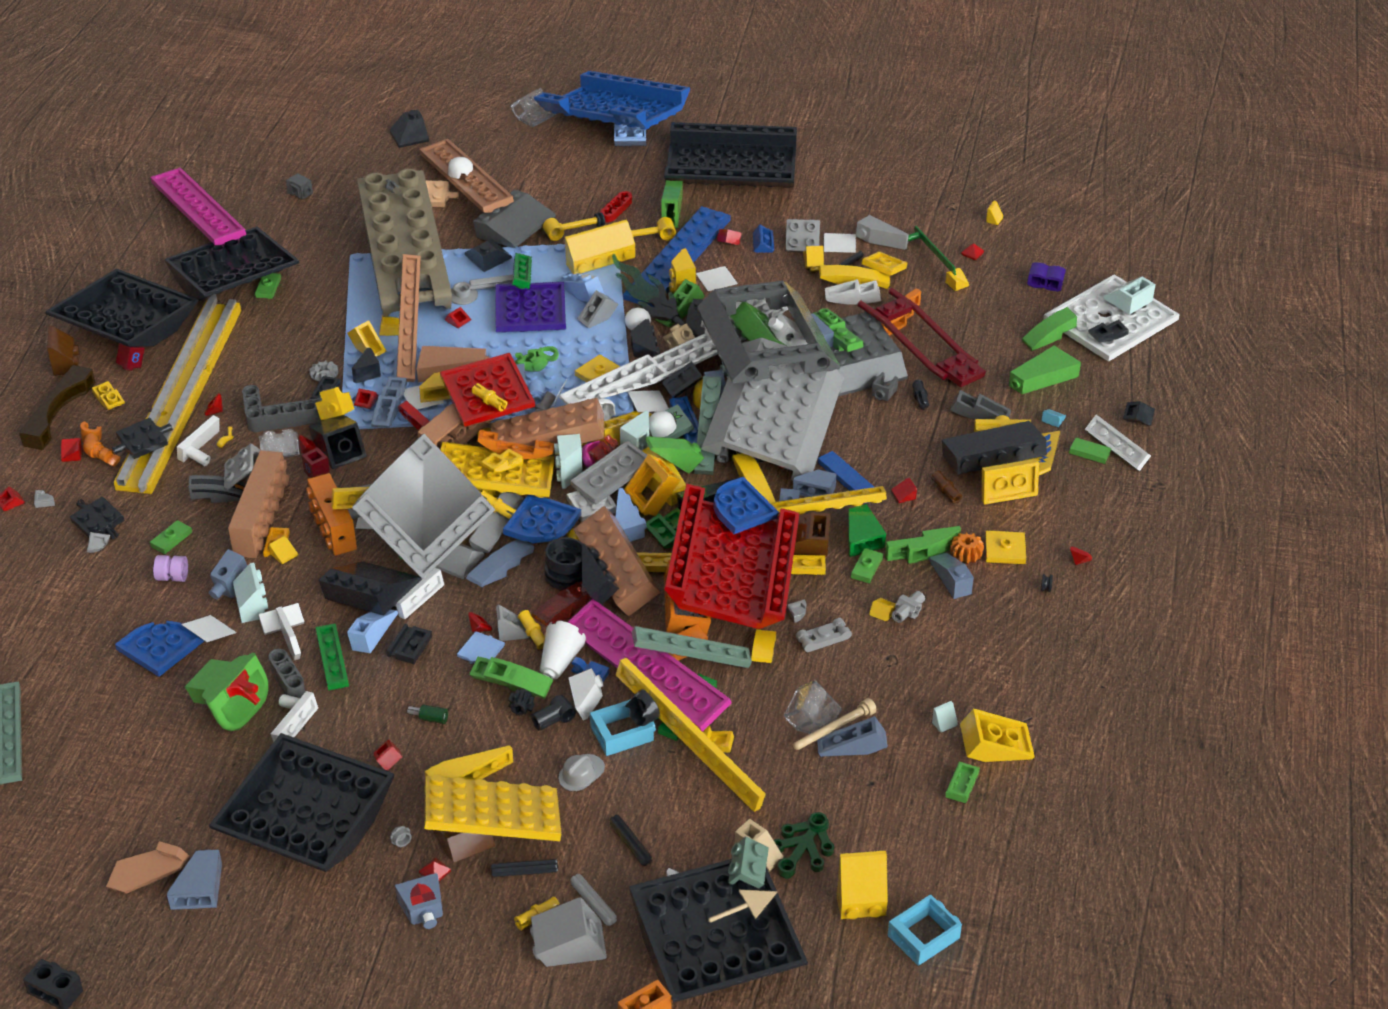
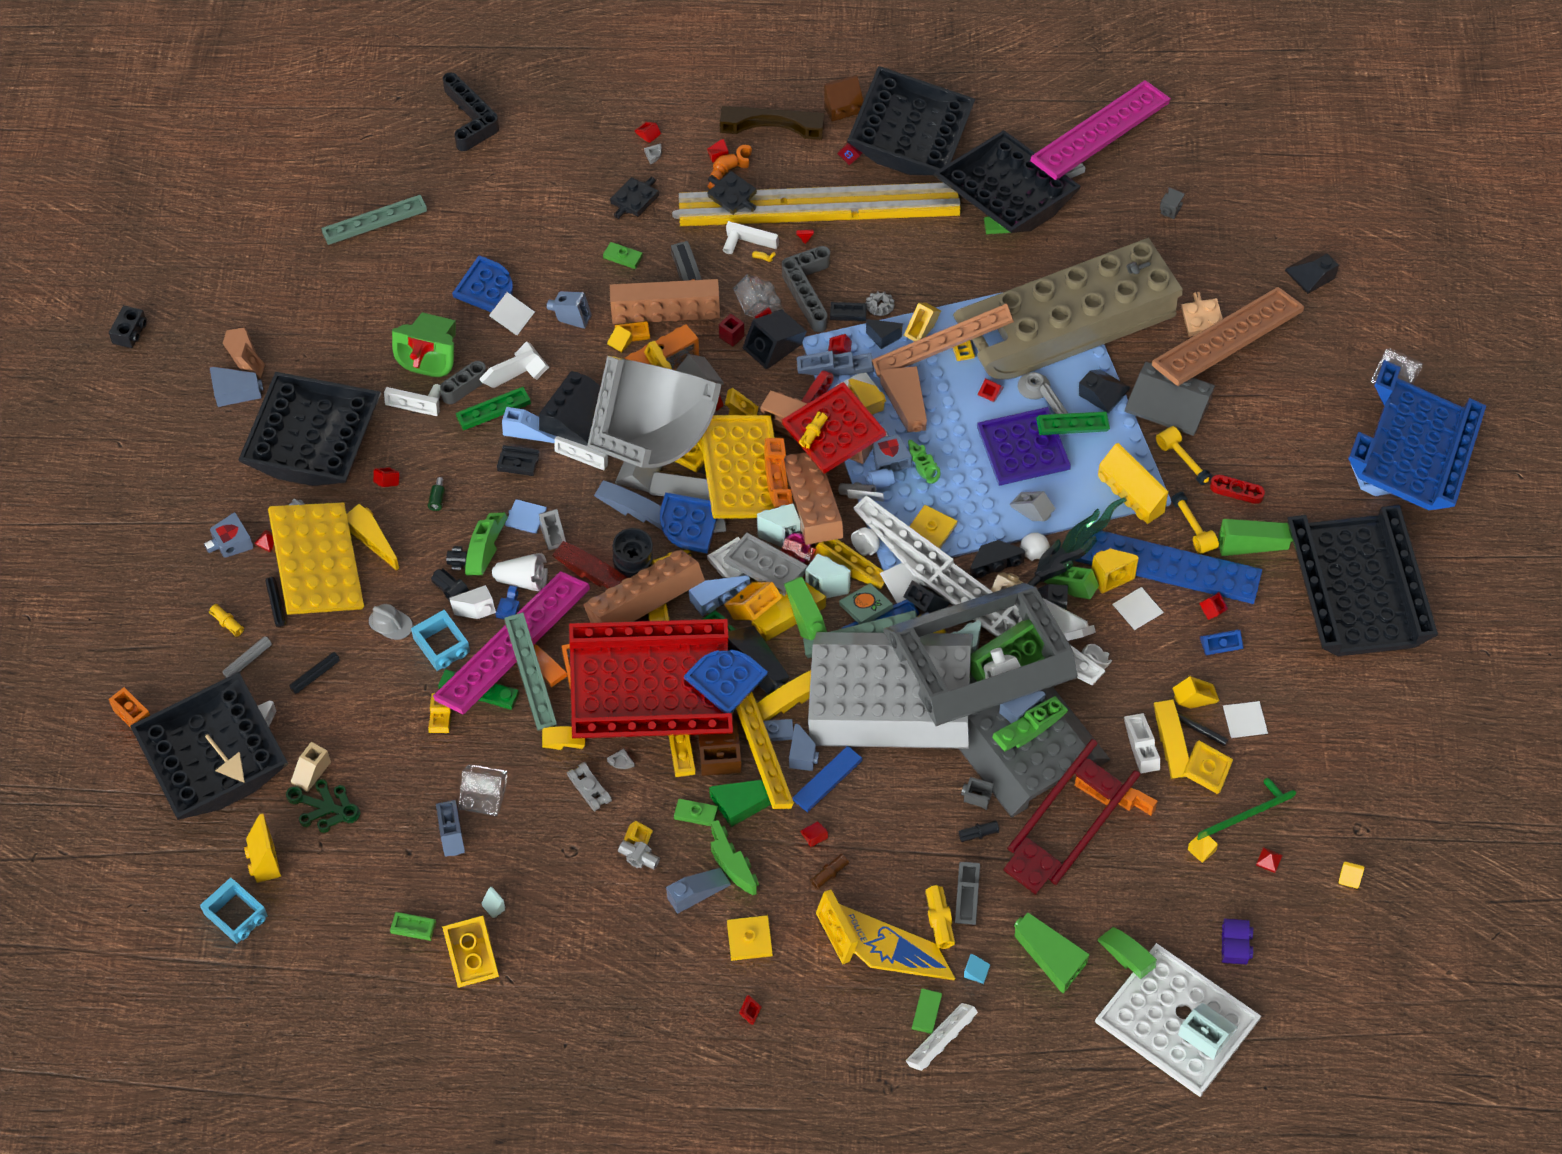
camera: 80 degrees right, 15 degrees up
(97, 542) = (604, 206): light grey tile -> none
(107, 395) = (801, 154): yellow slope -> none
(169, 568) = (575, 265): lavender wheel -> none
(240, 465) = (707, 269): light grey bracket -> none
(250, 593) = (550, 330): light aqua slope -> none
(334, 403) = (810, 321): yellow brick -> none
(458, 166) = (1229, 325): white hair -> none
(478, 623) = (555, 503): red slope -> none
(499, 506) = (696, 479): yellow pin -> none
(502, 462) = (744, 467): yellow slope -> none
(532, 629) = (549, 546): yellow pin -> none
(568, 934) = (201, 646): light grey slope -> none
(581, 285) = (1069, 482): light blue slope -> none
(595, 576) = (610, 575): black slope -> none
(643, 708) = (441, 645): black hair -> none
(661, 424) = (857, 594): white hair -> none
(694, 737) = (425, 697): yellow plate -> none
(748, 862) = (266, 754): sand green bracket -> none
(801, 234) = (1237, 676): light grey bracket -> none
(865, 708) = (494, 833): tan piece -> none
(878, 232) = (1265, 752): light grey slope -> none
(967, 547) = (736, 906): orange gear -> none
(994, 447) = (892, 907): black brick -> none
(1046, 583) = (697, 979): black bush -> none
(1108, 333) = (1134, 1013): black slope -> none
(1139, 412) = (999, 1057): black panel -> none

